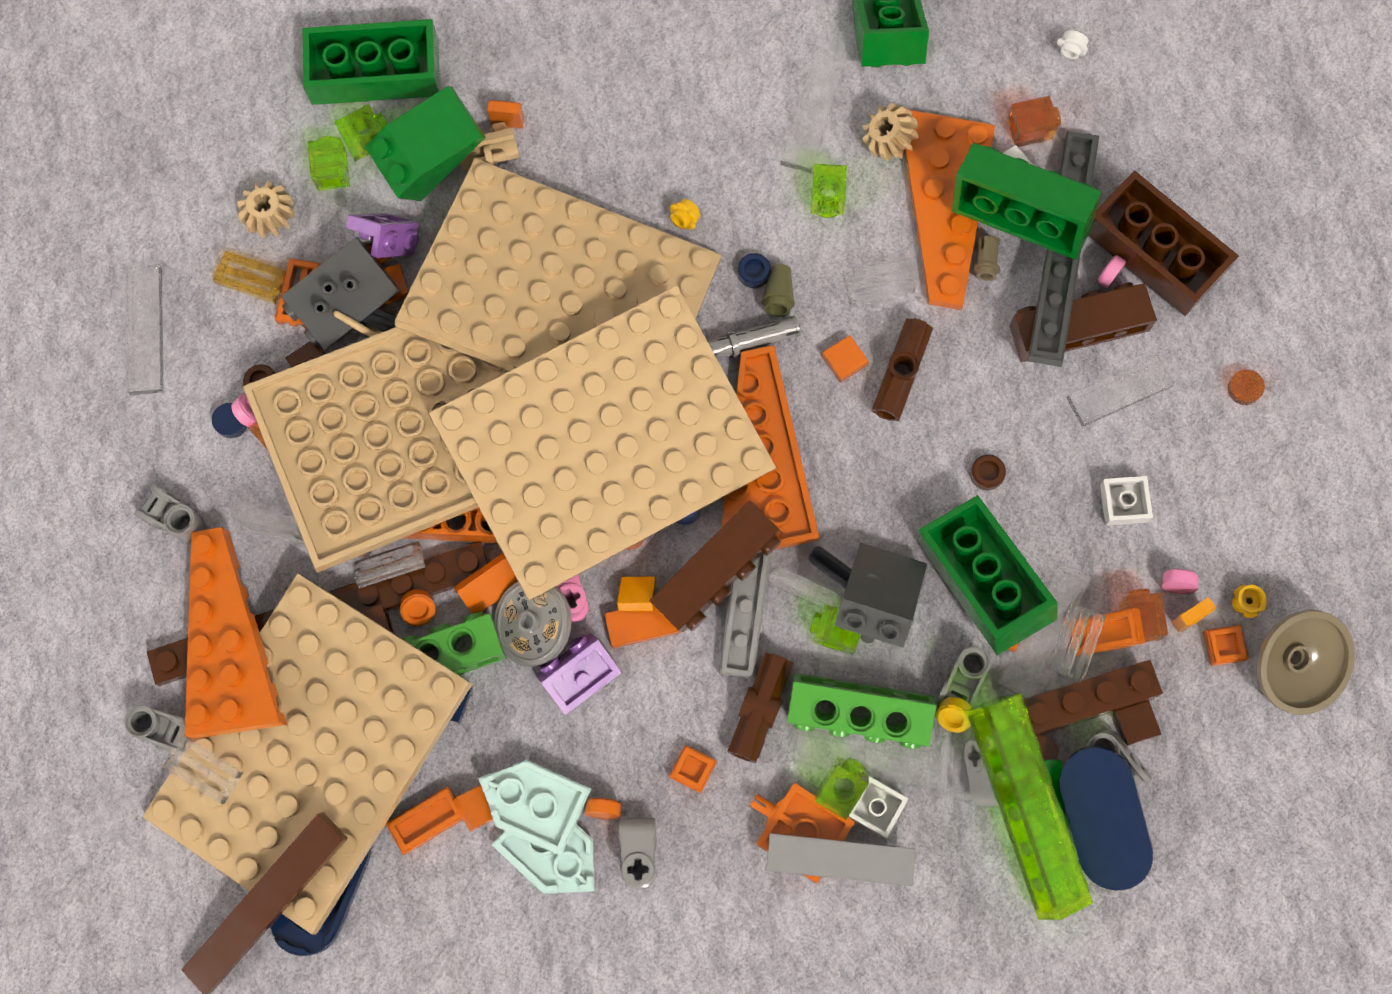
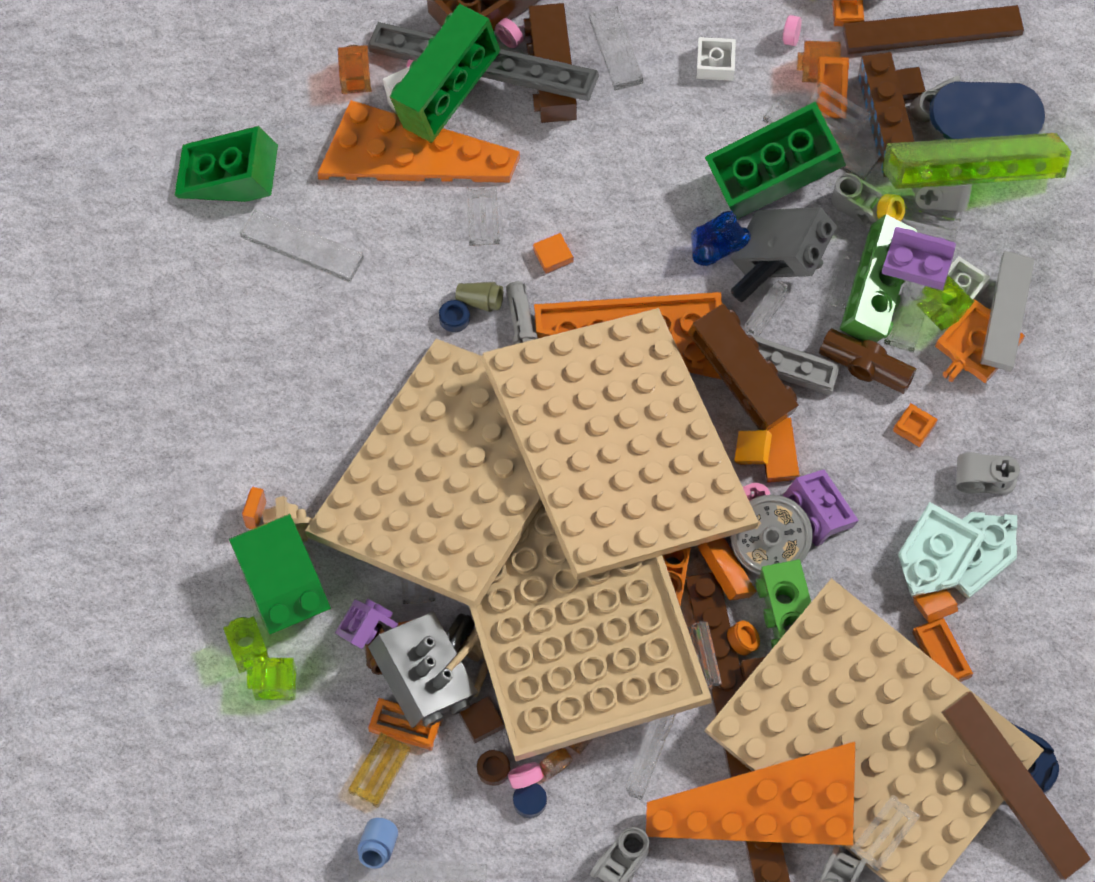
camera: 85 degrees left, 10 degrees down
(168, 282) = (377, 842): none -> medium blue brick
(269, 197) = (309, 754): tan gear -> none
(370, 62) = (174, 624): green brick -> none
(603, 808) = (946, 496): orange tile -> none
(684, 214) = (389, 363): yellow plate -> none
(830, 635) = (805, 292): clear neon green brick -> none
(833, 178) = (387, 229): clear neon green brick -> none
(878, 746) = (919, 258): none -> medium lavender bracket
(880, 526) = (717, 239): none -> clear blue piece
(890, 131) = (341, 170): tan gear -> none
(895, 386) = (558, 198): reddish brown piece -> none
(987, 266) = (478, 126): dark tan pin -> none
(987, 472) = (675, 158): reddish brown tile -> none
(1073, 44) = (284, 27): white plate -> none
(1194, 615) = (821, 24): light orange tile -> none
(1220, 749) = (933, 29): none -> reddish brown tile

